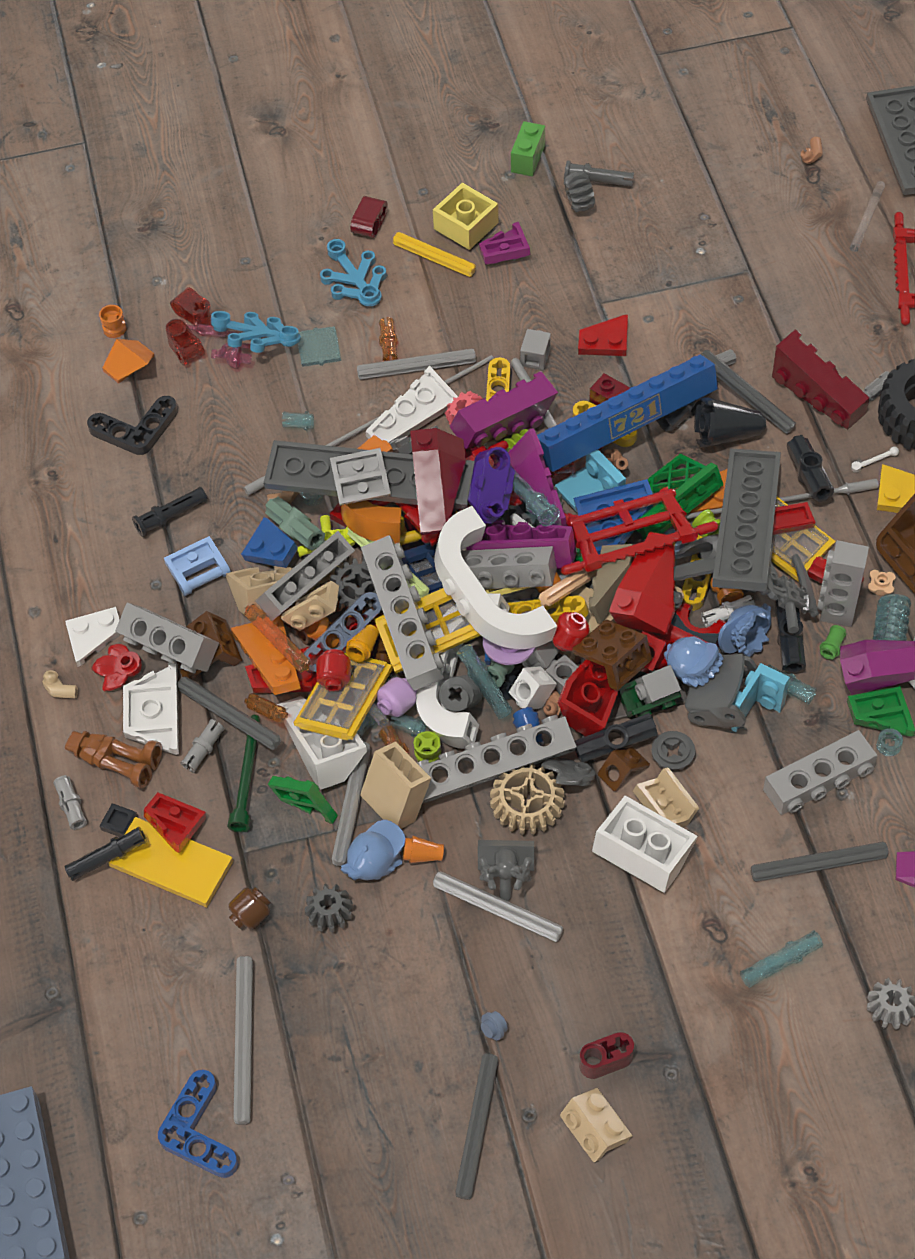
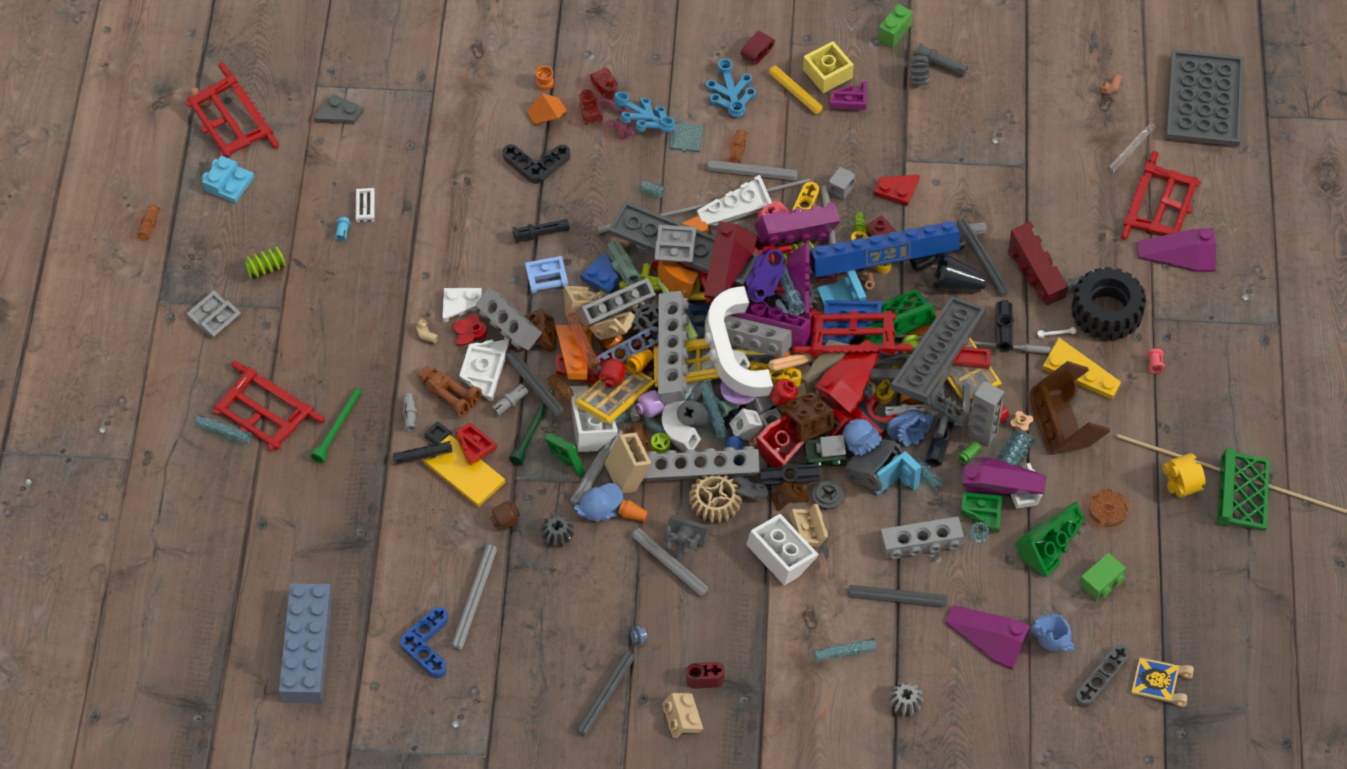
camera: 15 degrees right, 0 degrees up
(576, 390) = (859, 222): none -> clear neon green pin

